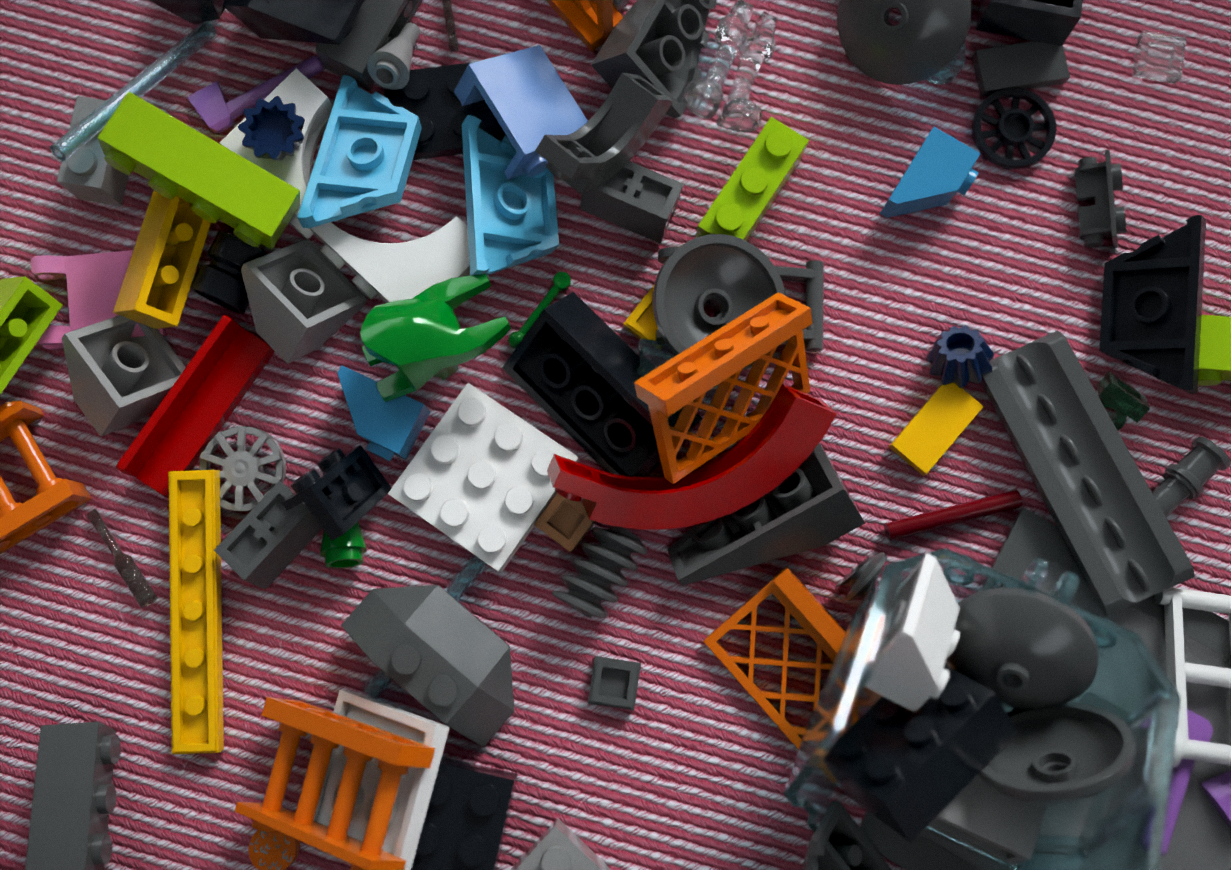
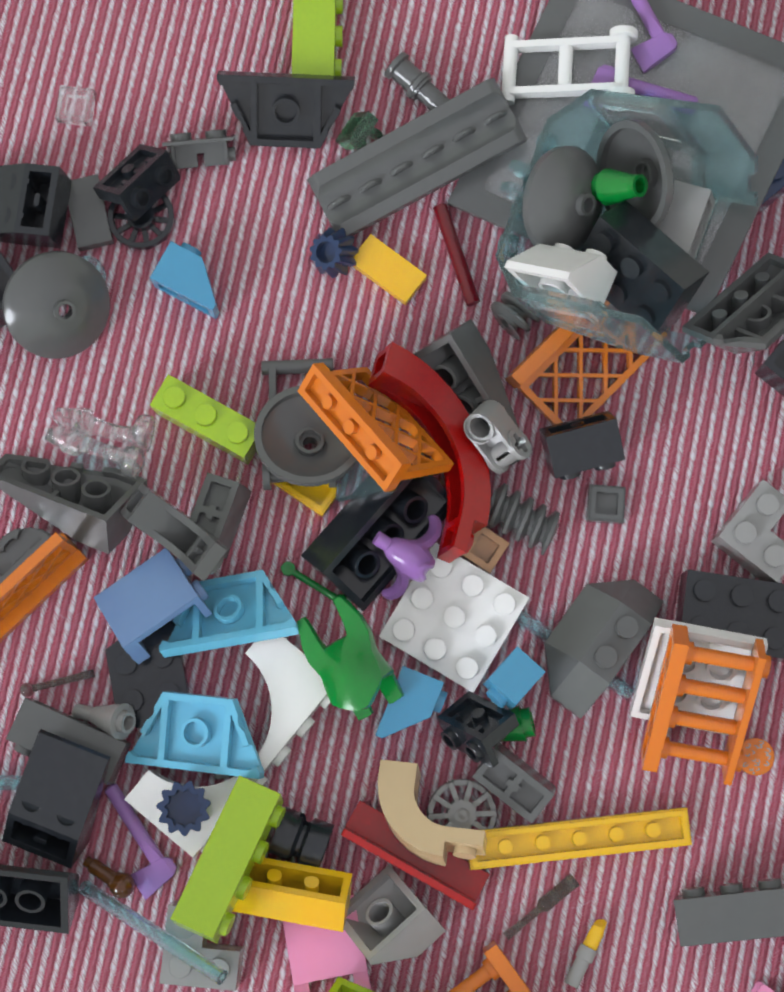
camera: 90 degrees left, 0 degrees up
(57, 608) = (586, 953): none -> light grey piece
(206, 66) = (119, 883): none -> reddish brown piece
(240, 392) = (425, 839): none -> tan arch
(298, 299) = (319, 779): light grey slope -> none
(388, 535) = (512, 679): none -> dark azure slope
(561, 421) = (409, 557): none -> medium lavender piece
(690, 656) = (582, 445): none -> black brick
(708, 539) = (498, 437): none -> light grey piece
(1038, 722) = (616, 186): none -> green cone
(1059, 123) = (139, 180): none -> black bracket

